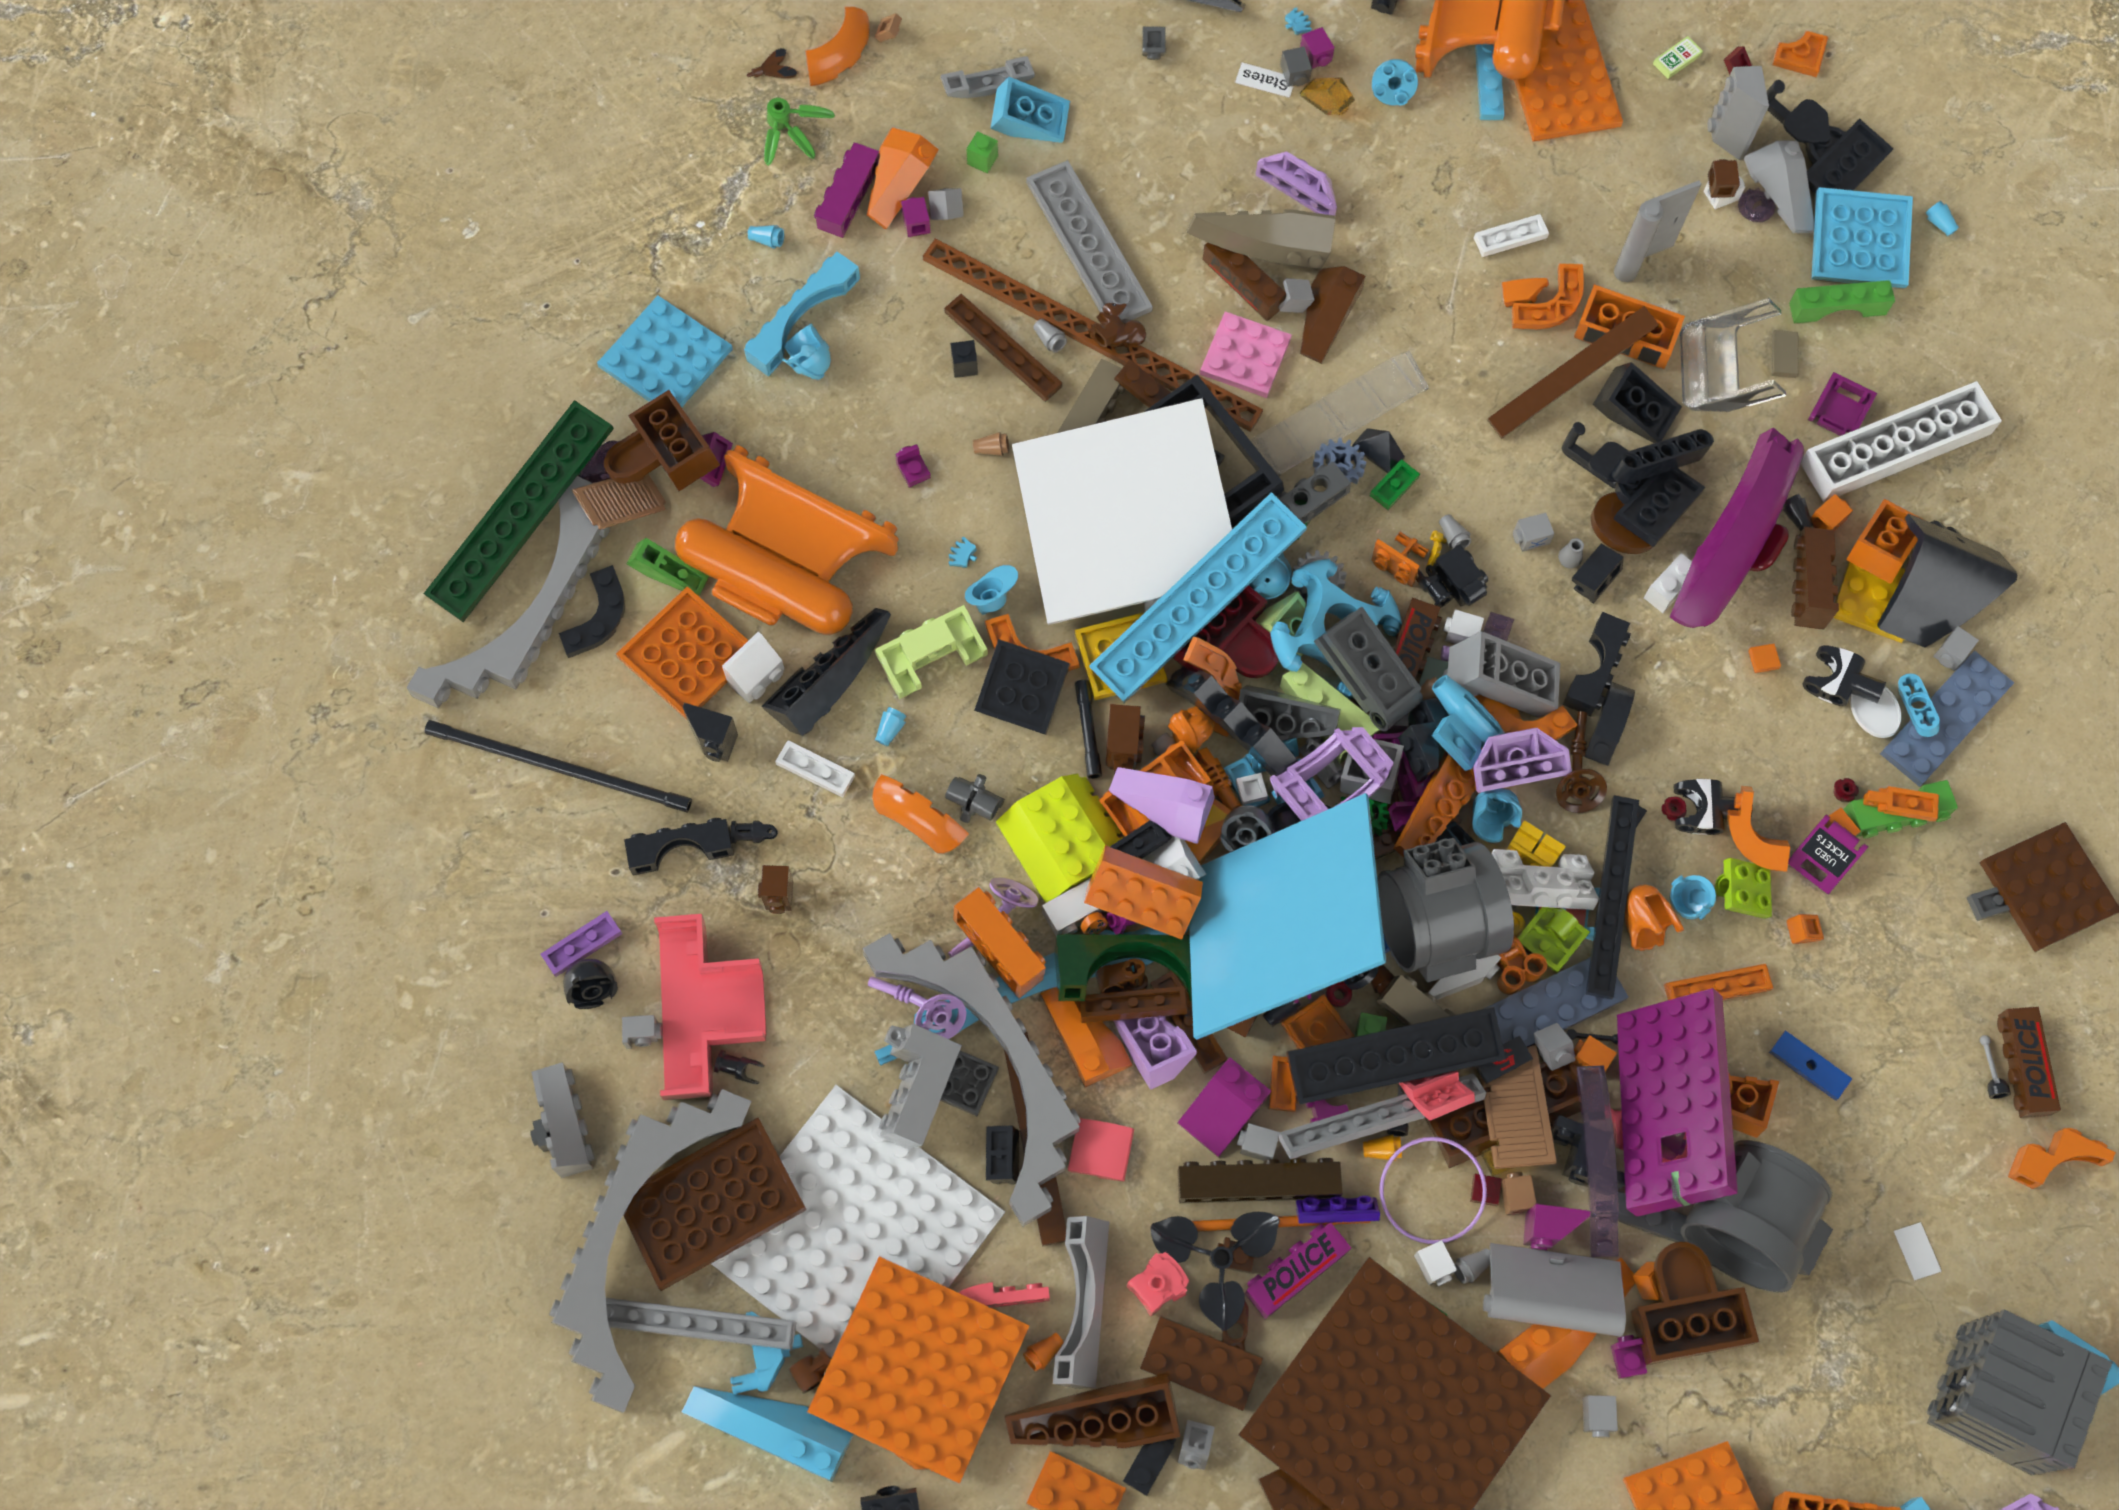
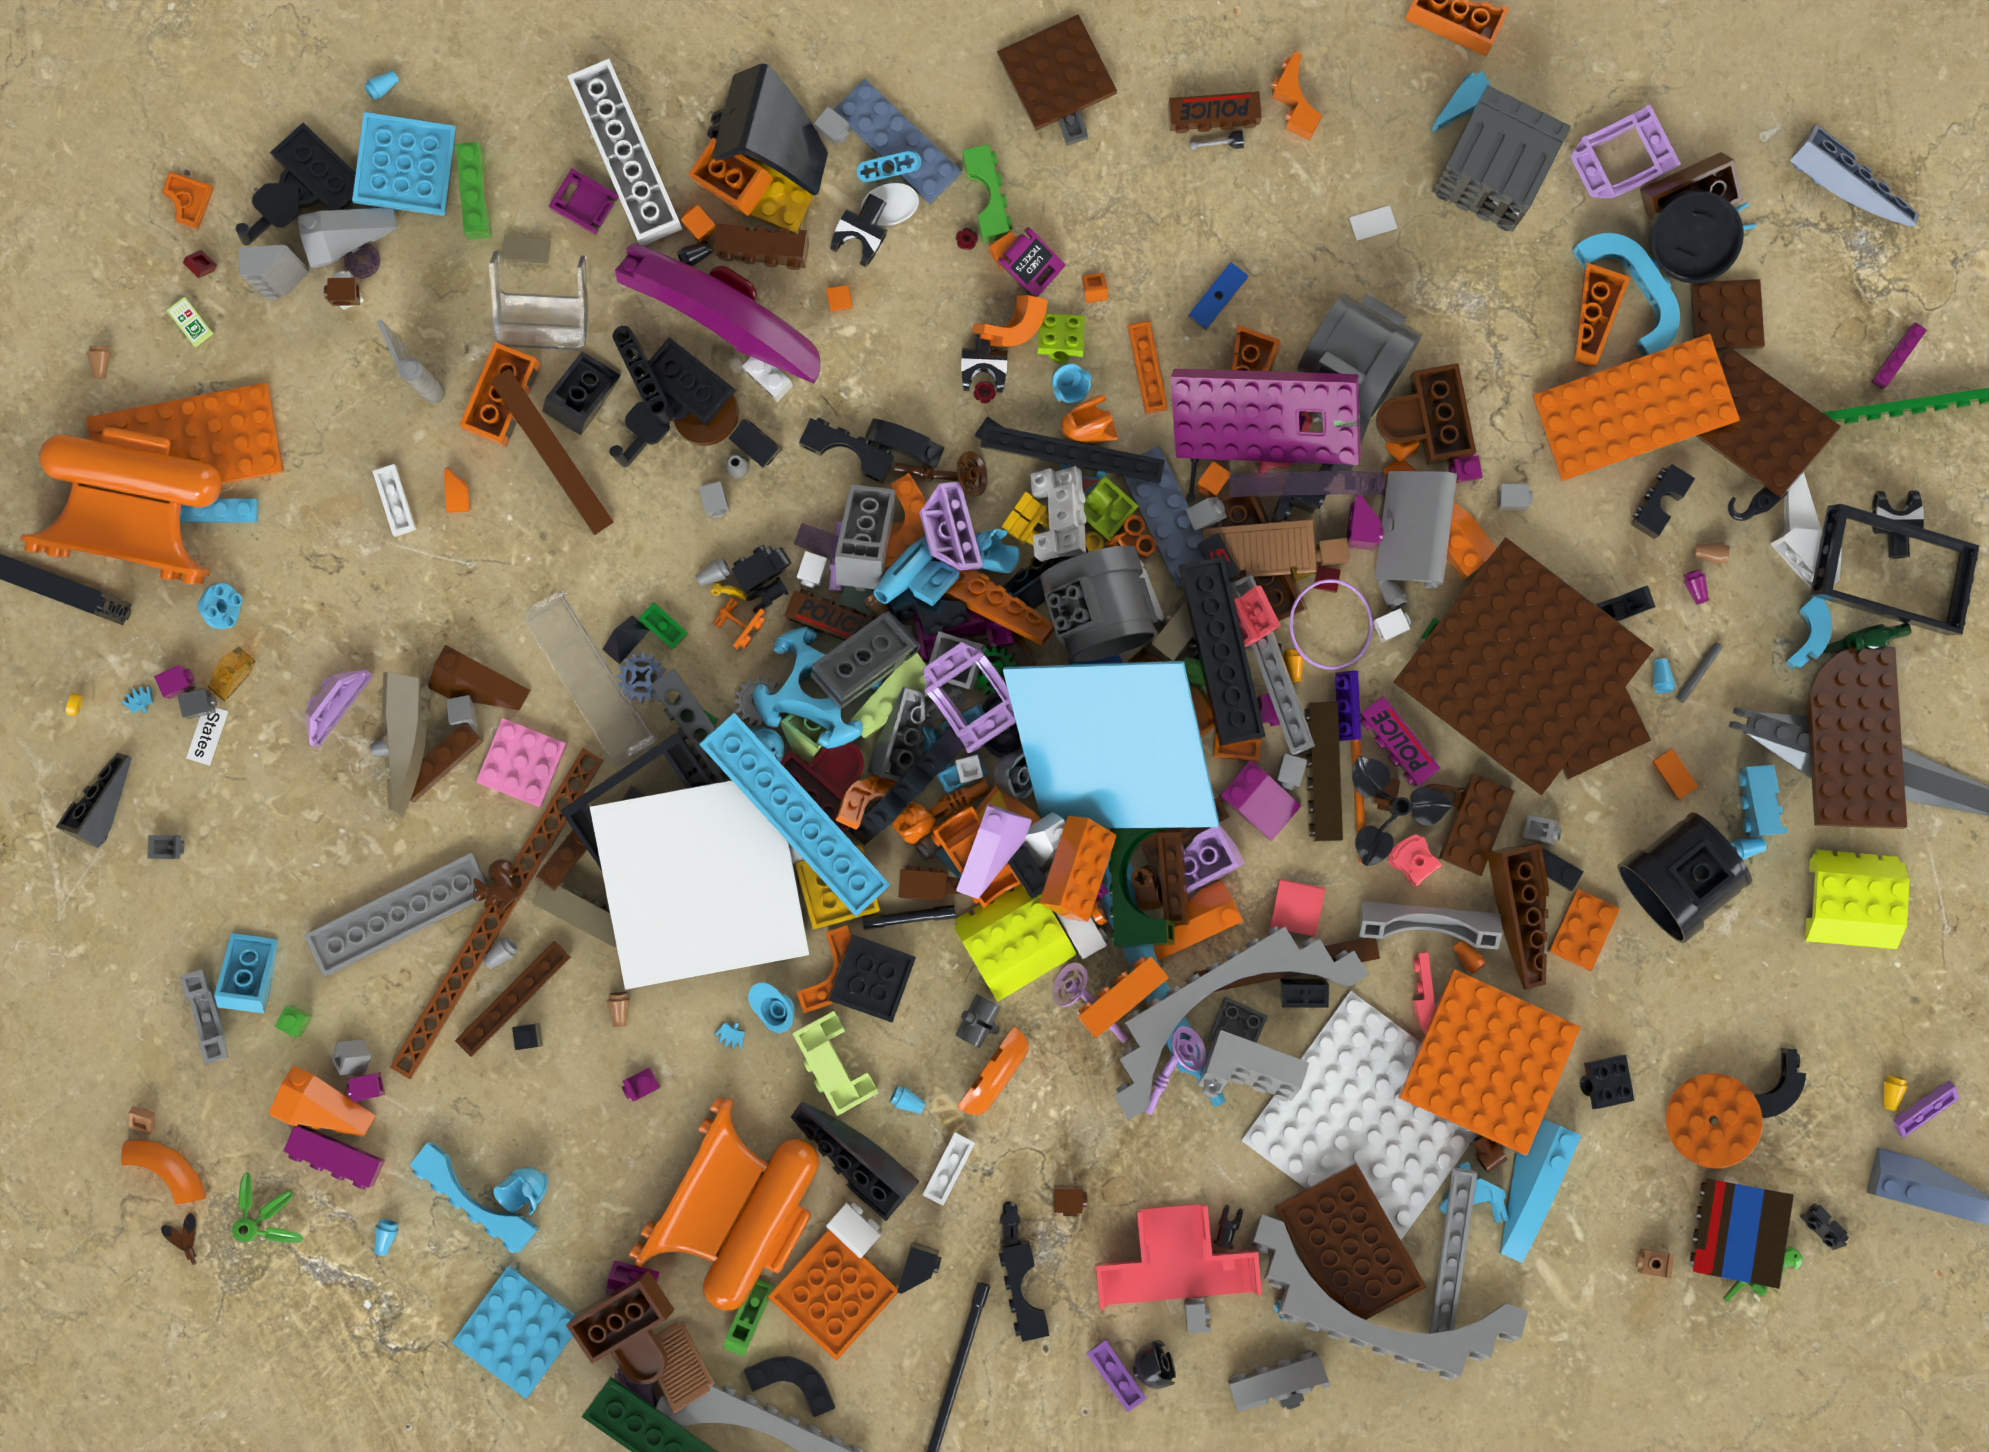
camera: 90 degrees left, 15 degrees up
(1556, 310) = (475, 457): orange plate -> none
(1904, 802) = (987, 190): orange hinge -> none

